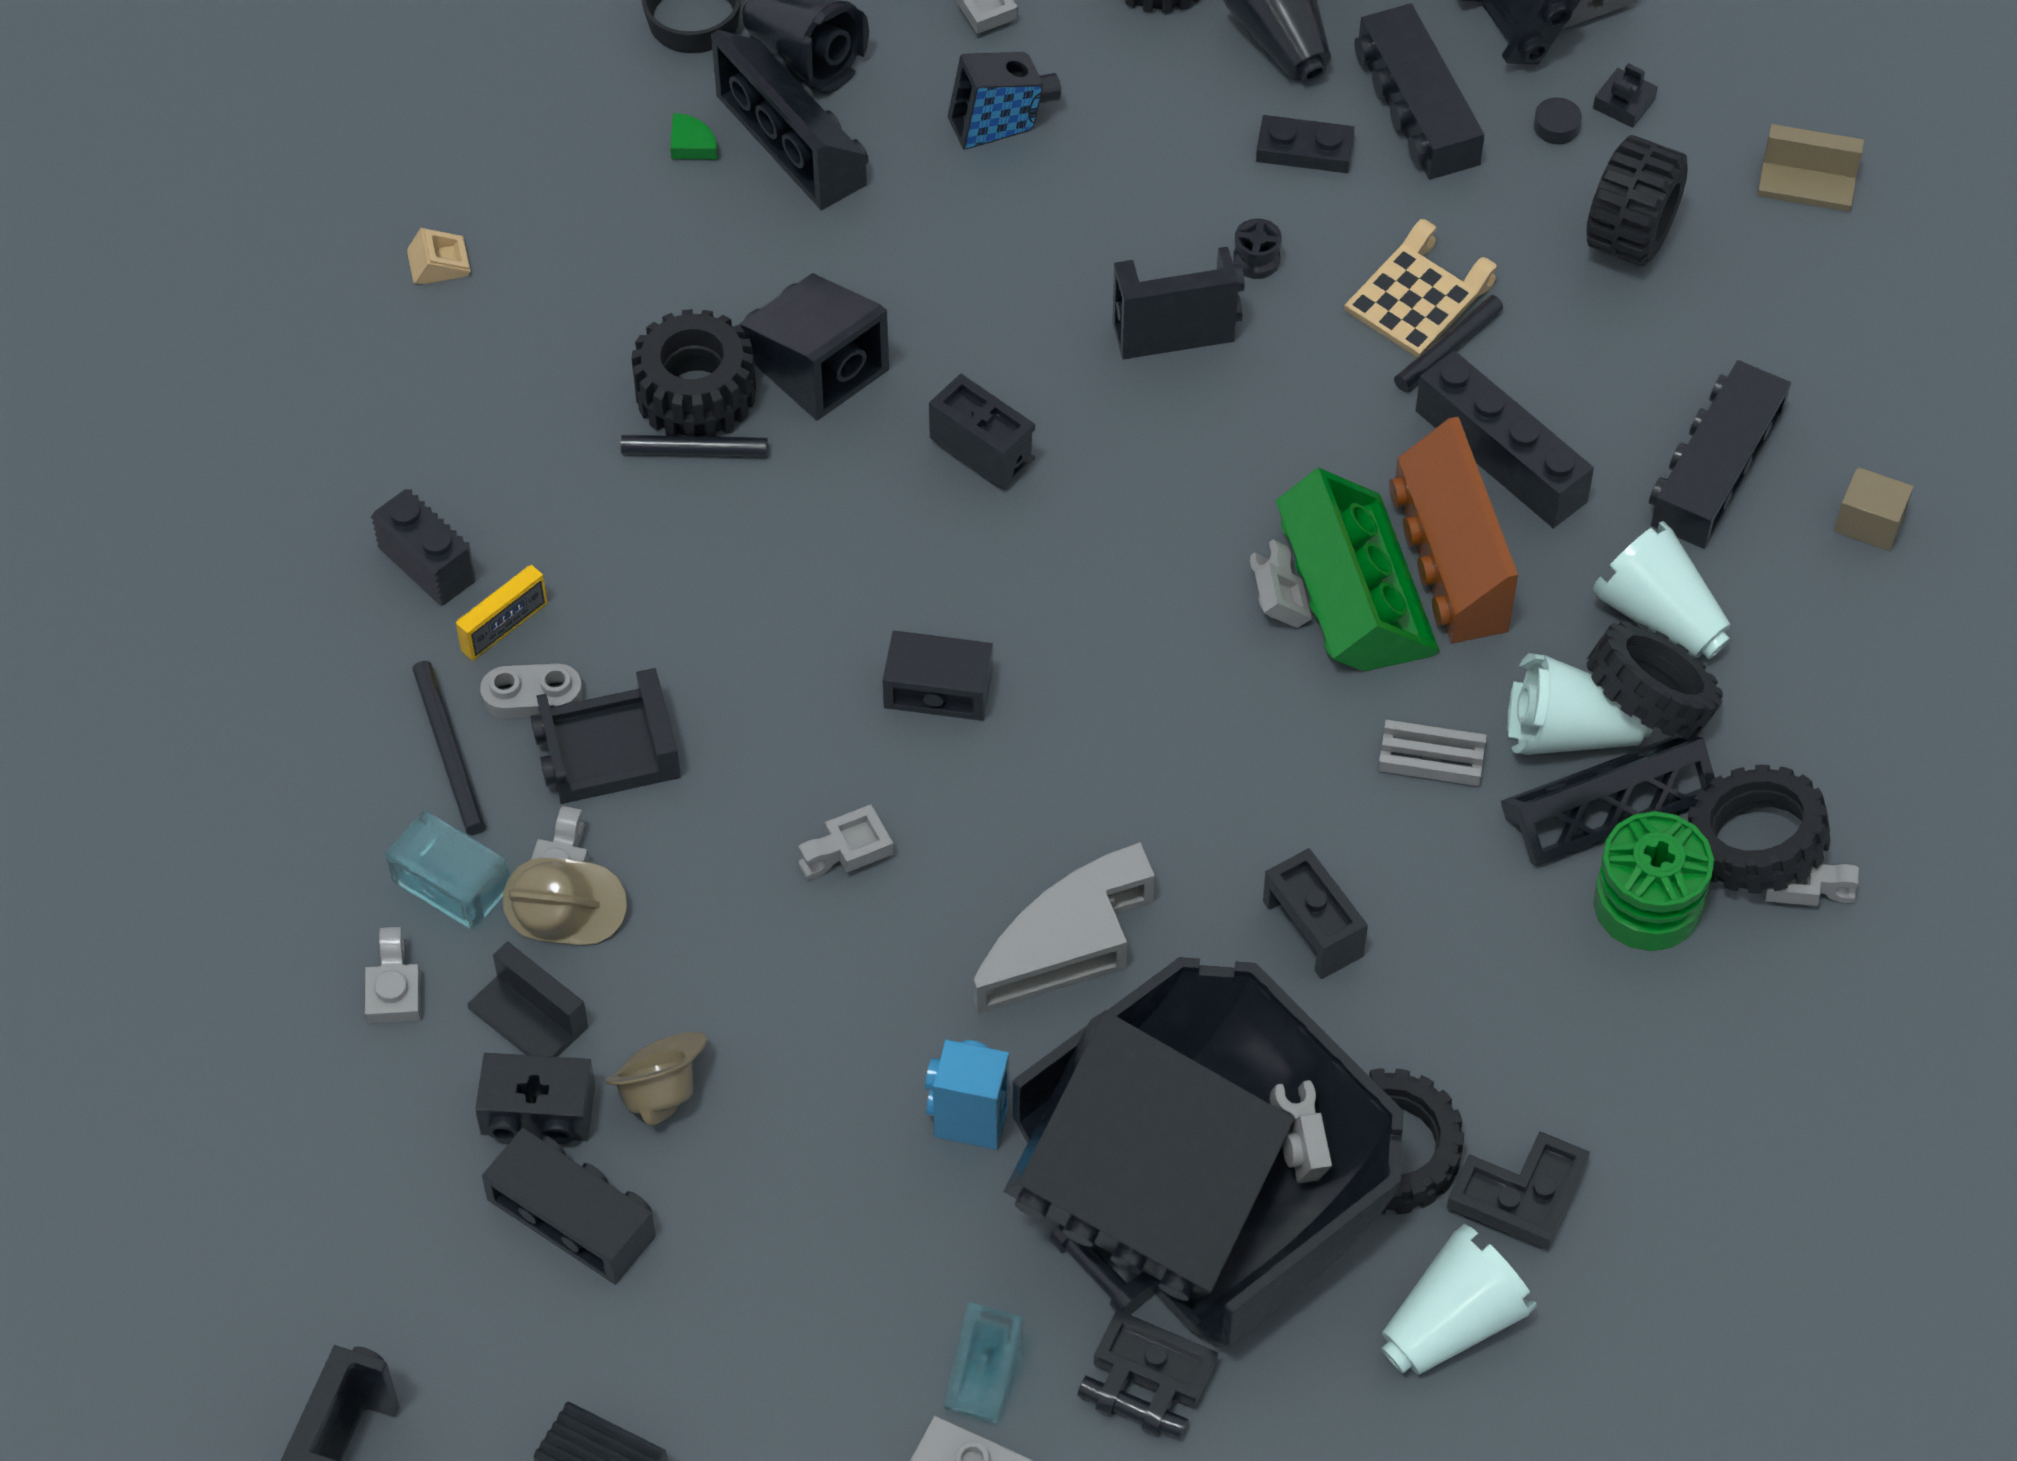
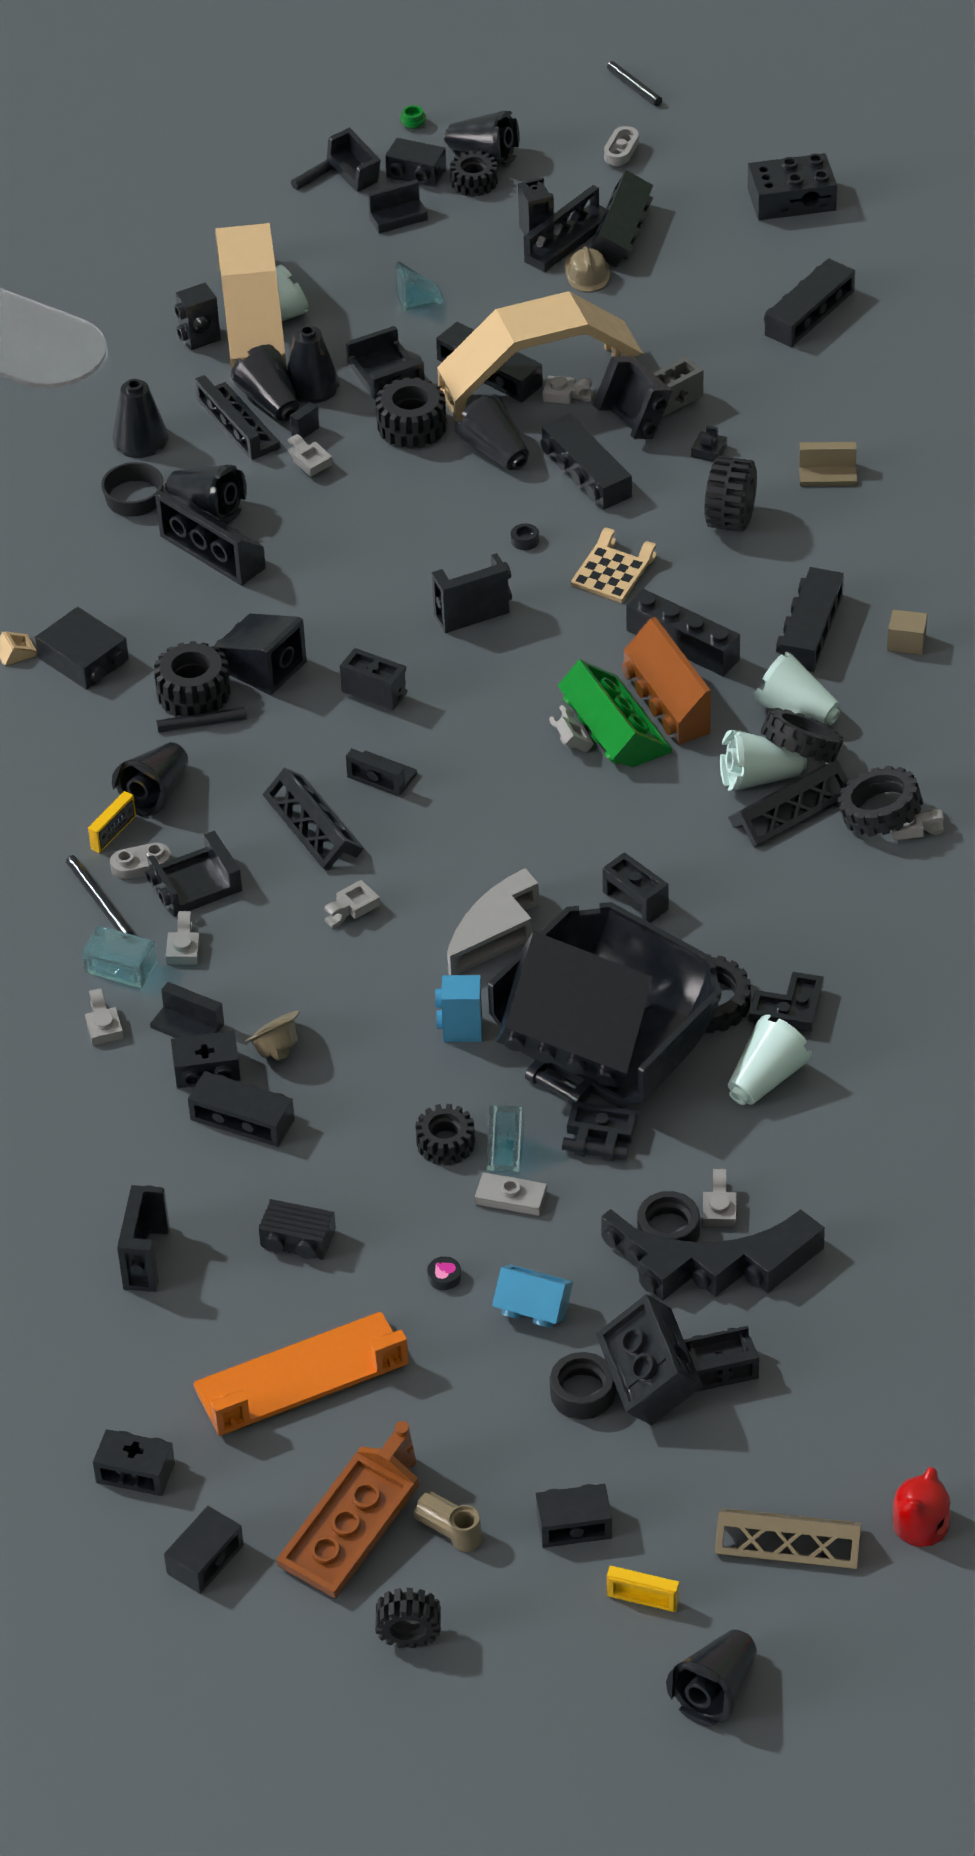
camera: 10 degrees left, 10 degrees down
(424, 546) = (55, 795): black brick -> none
(538, 280) = (82, 648): none -> black brick
(564, 901) = (193, 961): dark tan piece -> none
(584, 543) = (151, 777): none -> black cone
(691, 139) = (153, 560): green tile -> none
(831, 658) = (319, 813): none -> black fence
(885, 1297) = (443, 1120): none -> black tyre
(937, 675) = (381, 809): black panel -> none
(953, 599) = (379, 771): none -> black panel
(997, 96) = (333, 504): black torso -> none
(1249, 240) = (514, 555): black wheel -> none
(1291, 207) = (525, 536): none -> black tile
(1305, 144) = (524, 502): black plate -> none
(1306, 1141) = (662, 989): light grey plate -> none
(1433, 746) = (677, 799): light grey tile -> none
(1449, 342) = (644, 583): black bar -> none
(1557, 120) = (672, 465): black tile -> none
(1653, 881) = (826, 836): green wheel -> none

